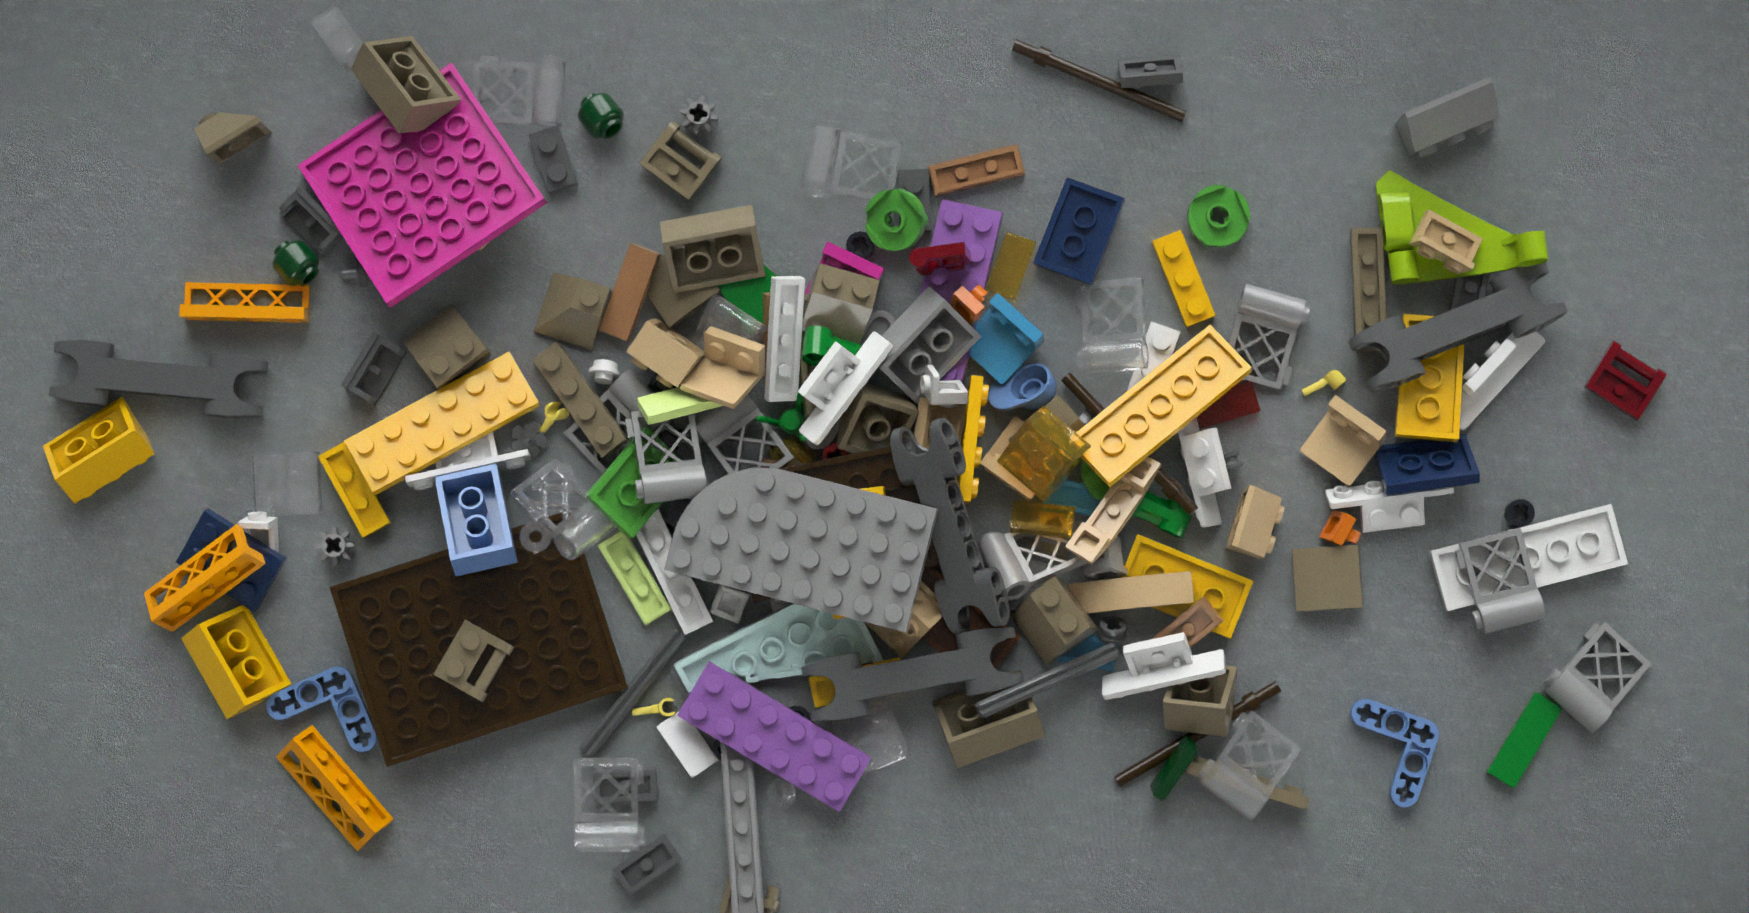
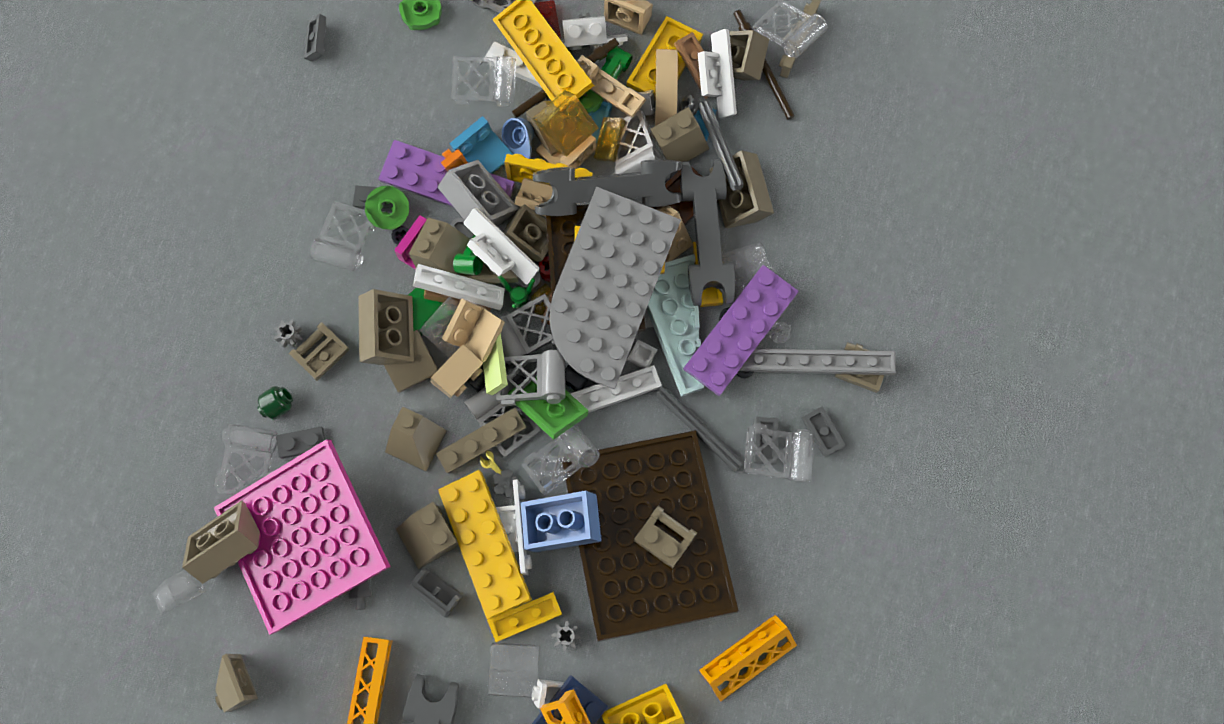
camera: 85 degrees left, 10 degrees down
(296, 263) = (344, 643): dark green head -> none
(311, 221) = (314, 628): dark grey hinge -> none
(338, 698) = (679, 648): medium blue beam -> none
(528, 544) = (578, 475): clear plate -> none
(604, 371) = (463, 421): white plate -> none
(630, 292) = (407, 395): medium nougat tile -> none
(634, 577) = (615, 418): yellowish green tile -> none
(653, 709) = (711, 411): light yellow hand -> none
(687, 745) = (739, 395): white slope -> none
(942, 393) = (512, 187): white bracket -> none
(948, 256) = (417, 173): dark red plate -> none
(976, 170) = (362, 156): medium nougat tile -> none
(1010, 265) = (429, 140): clear yellow tile -> none
(1043, 56) = (292, 103): dark brown bar -> none
(1079, 231) = (416, 93): dark blue plate -> none
(1174, 768) = (786, 76): dark green tile -> none
(1183, 278) = (458, 36): yellow plate -> none

